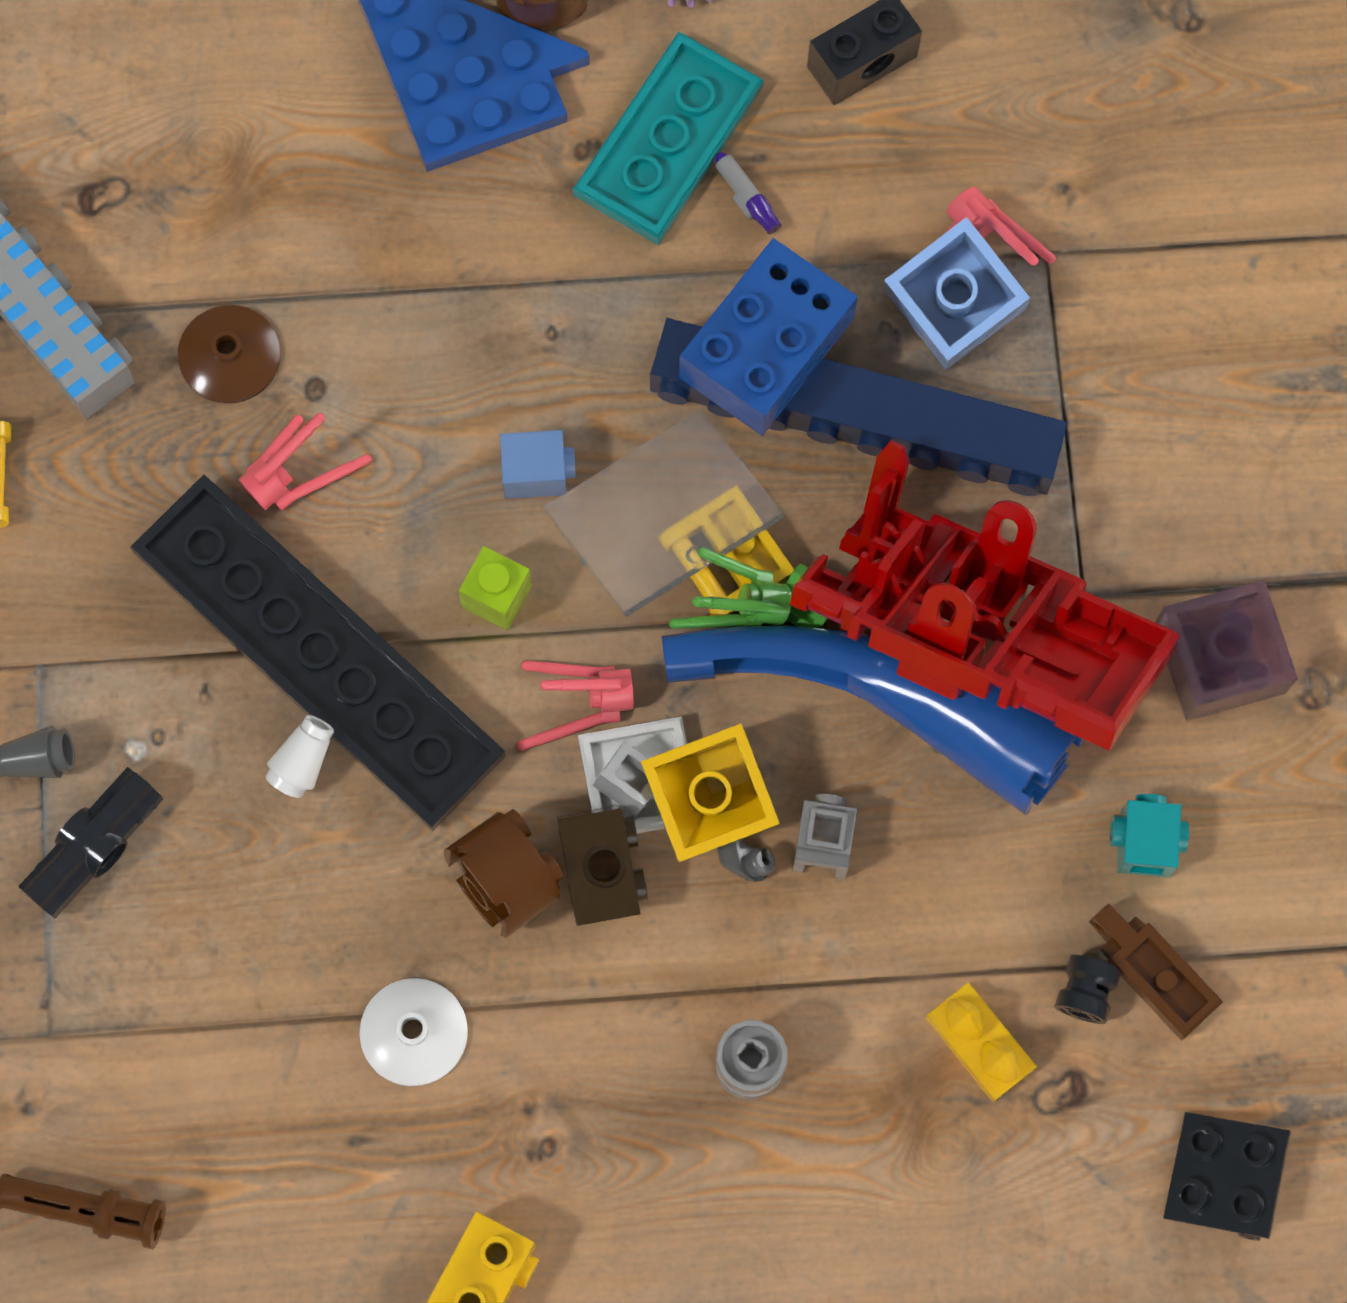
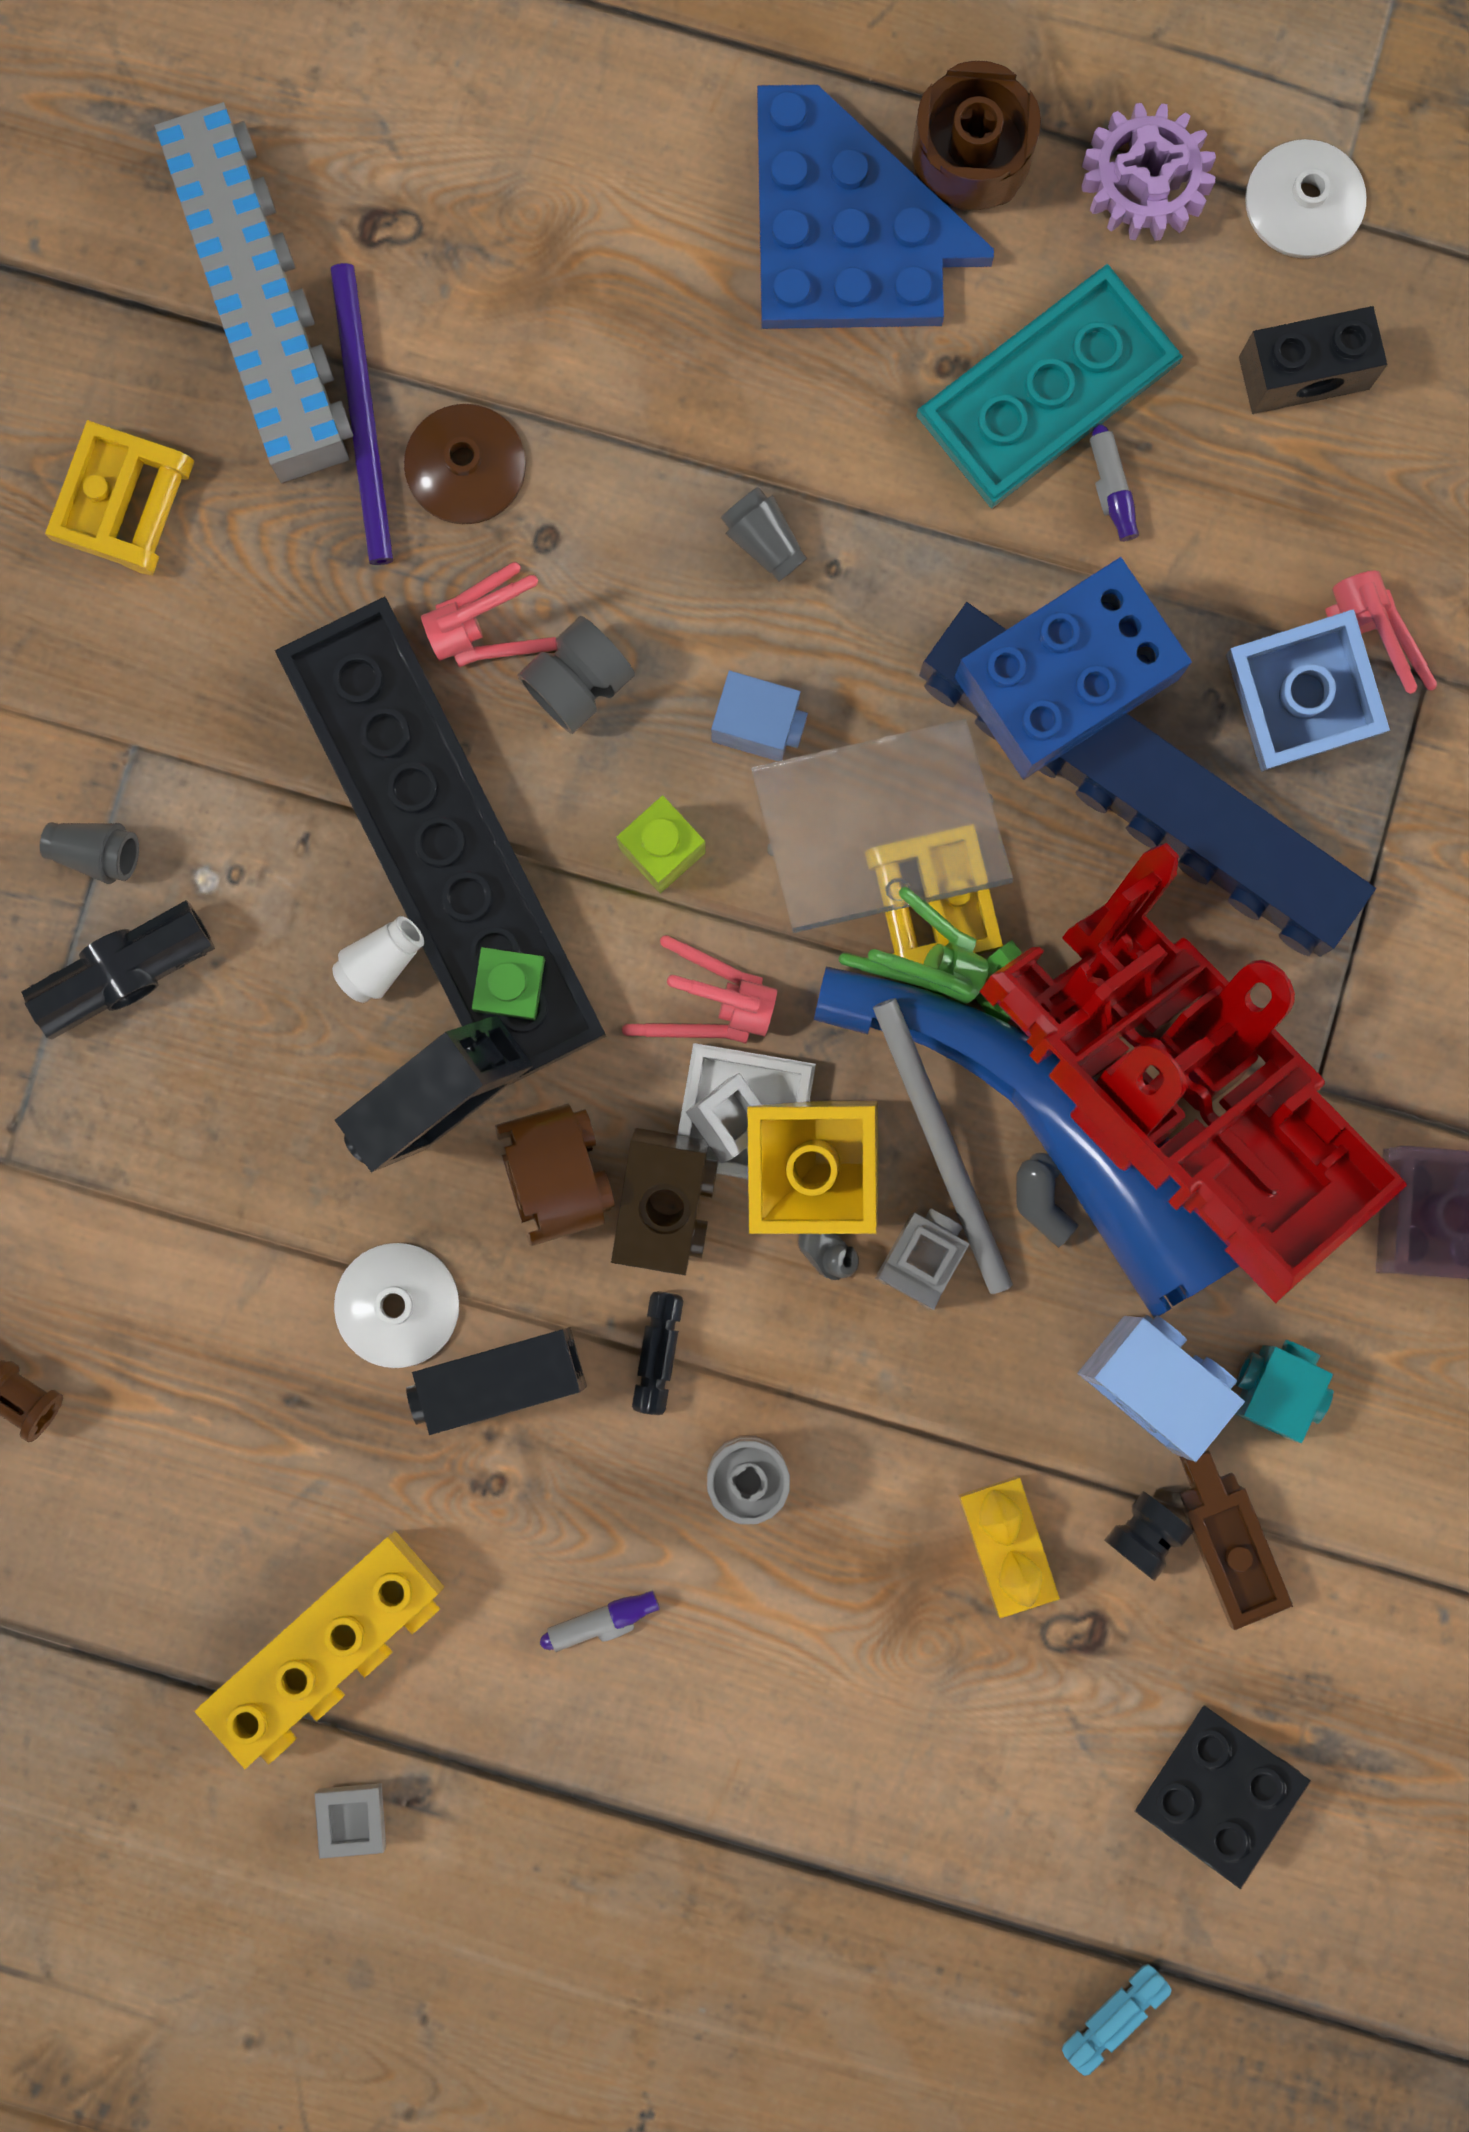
camera: 20 degrees right, 10 degrees up
(134, 344) = (361, 414): none -> dark purple piece
(377, 484) = (576, 674): none -> dark grey wheel
(385, 841) = (432, 1093): none -> black window
(413, 738) = (508, 983): none -> bright green plate
(487, 323) = (764, 533): none -> dark grey cone
(520, 1051) = (496, 1382): none -> black window
(640, 991) = (657, 1353): none -> black axle
(676, 1225) = (606, 1622): none -> piece
(807, 741) = (942, 1145): none -> light grey piece
(897, 758) = (1037, 1199): none -> dark grey arm
(1050, 862) = (1161, 1386): none -> light blue brick

